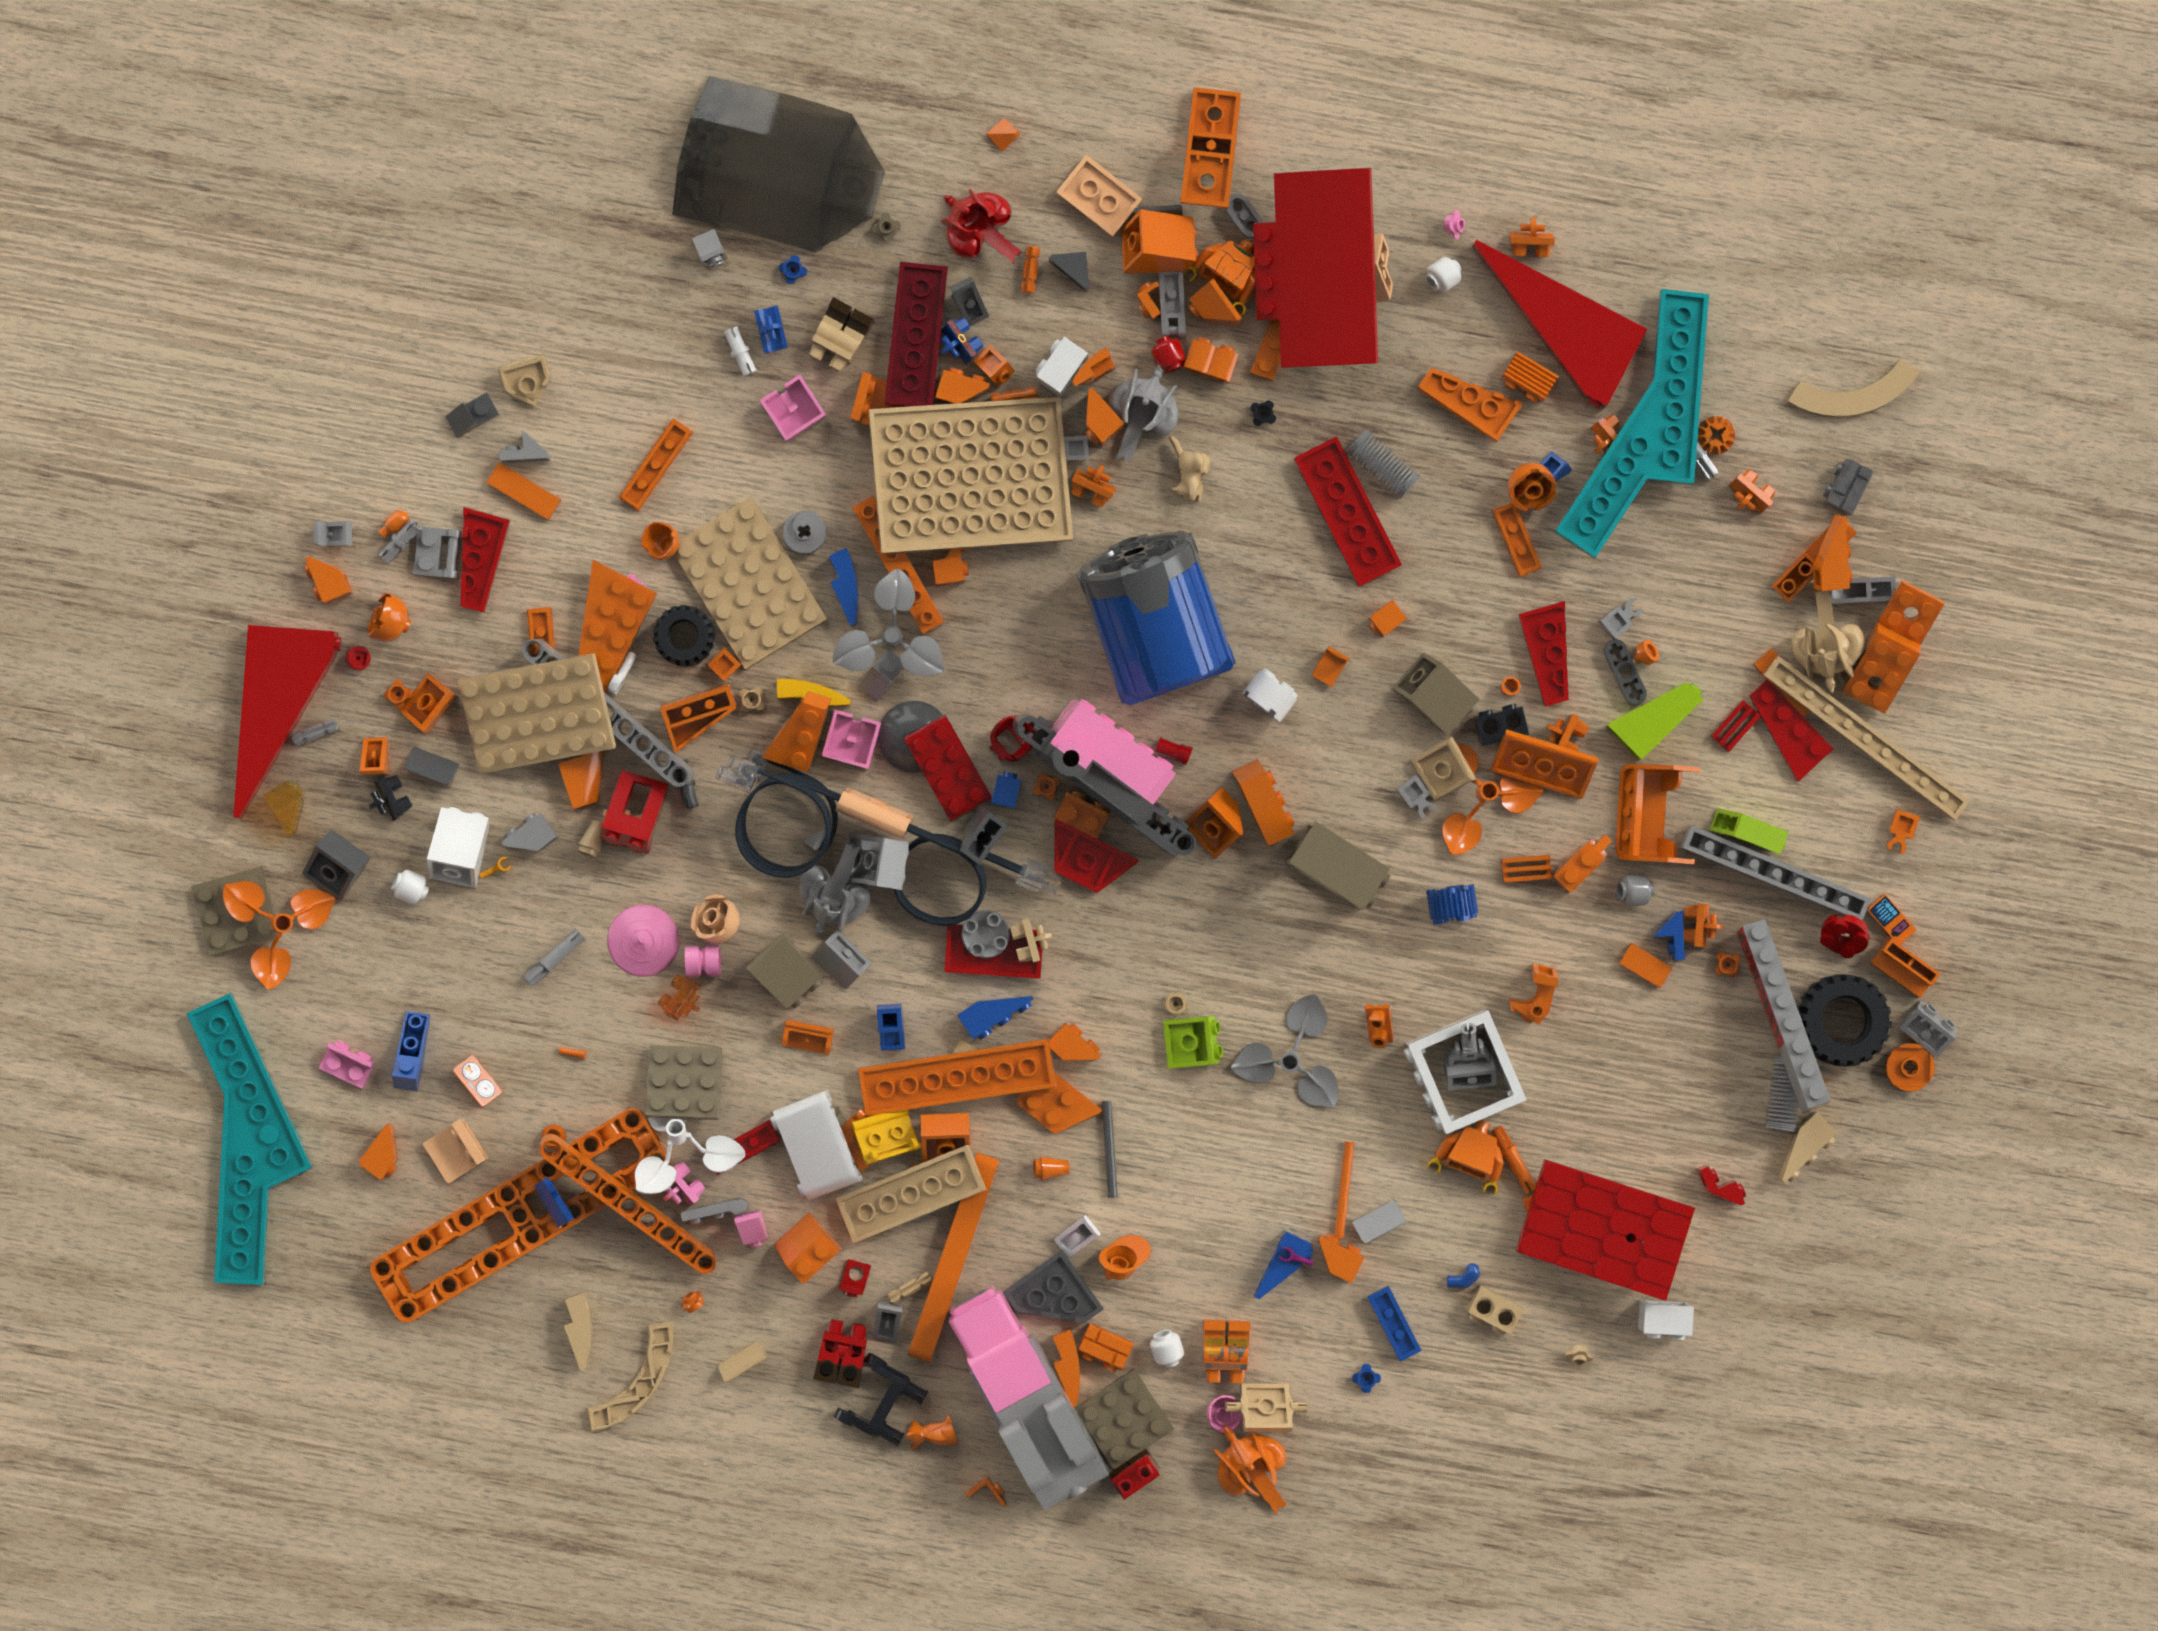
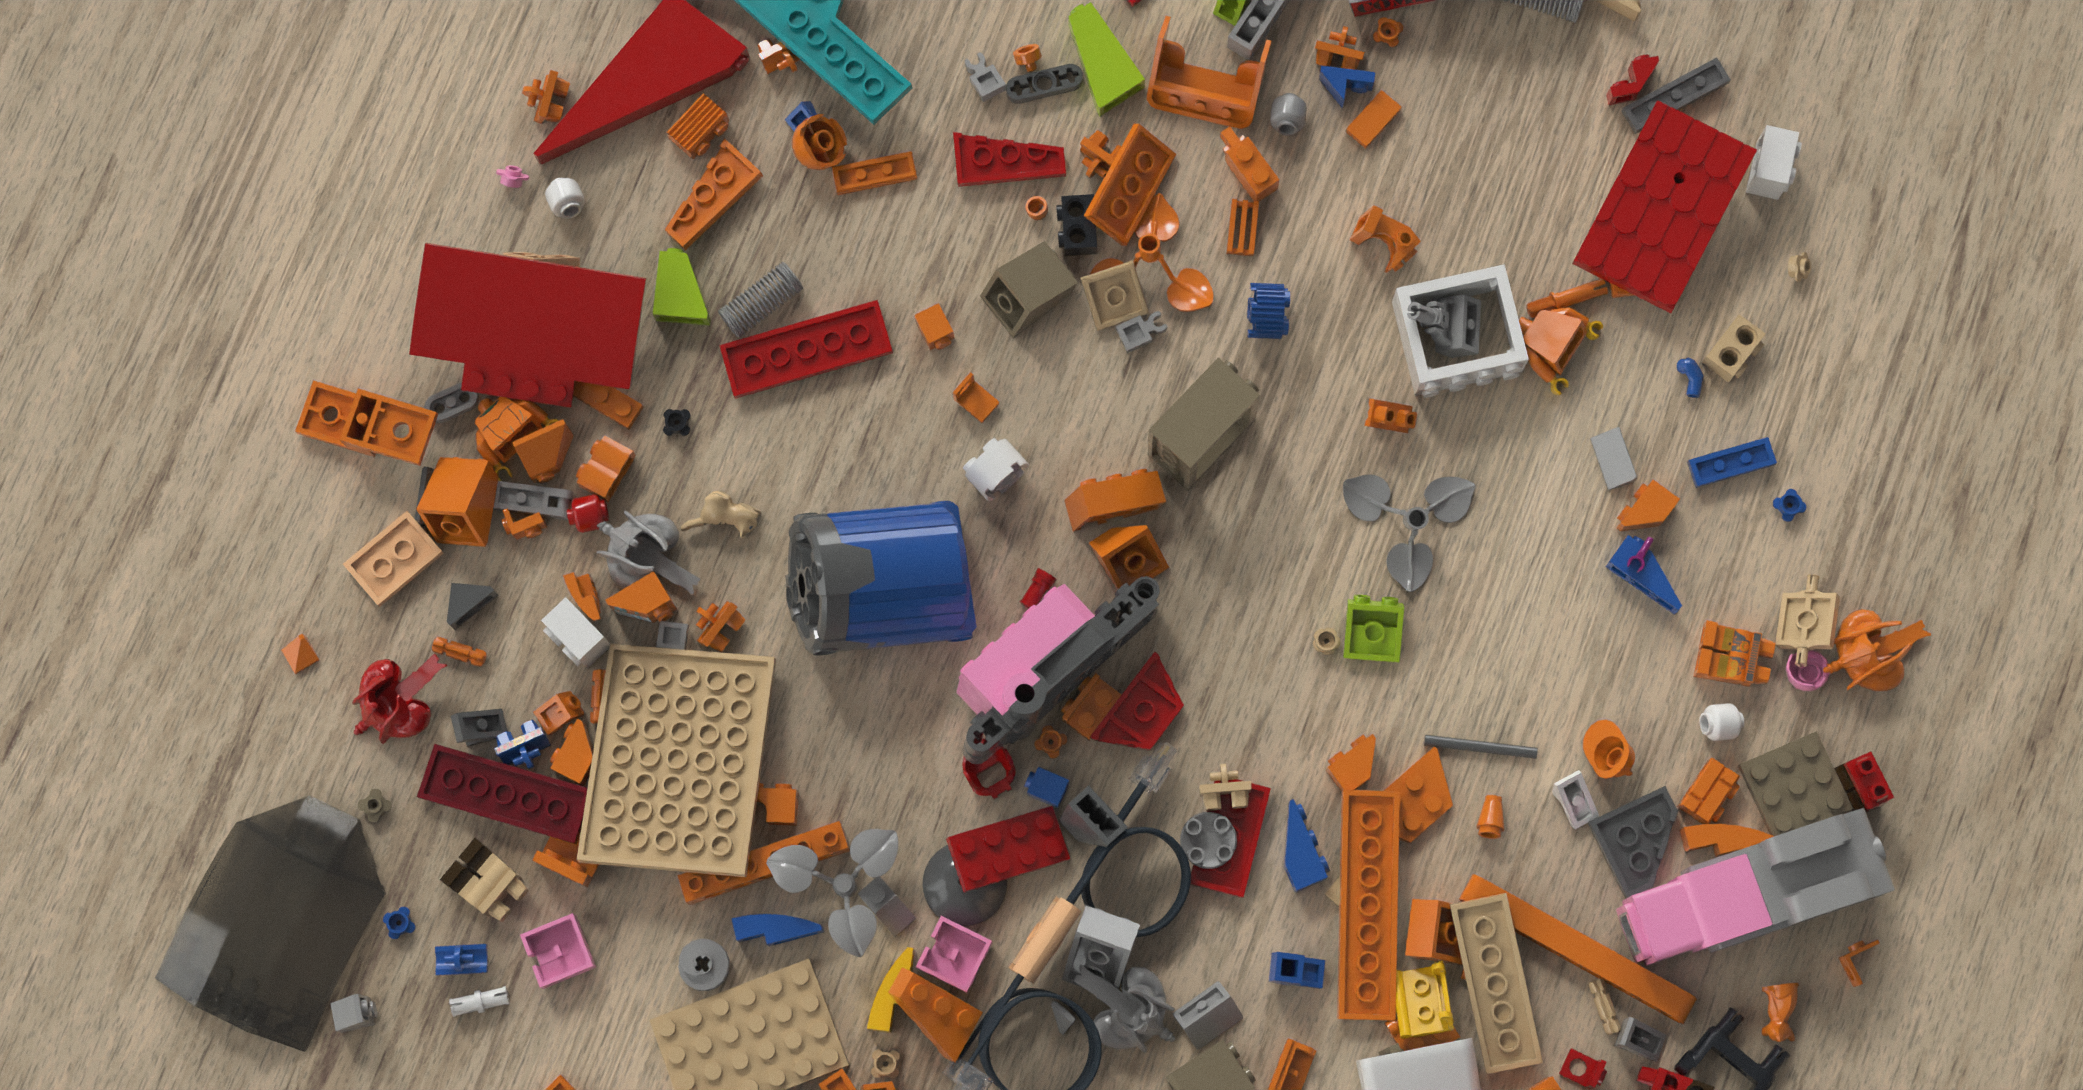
camera: 75 degrees left, 10 degrees down
(1344, 1189) = (1570, 491): orange bar -> none
(1379, 390) = (677, 291): none -> lime slope
(1715, 1226) = (1678, 93): none -> flat silver plate

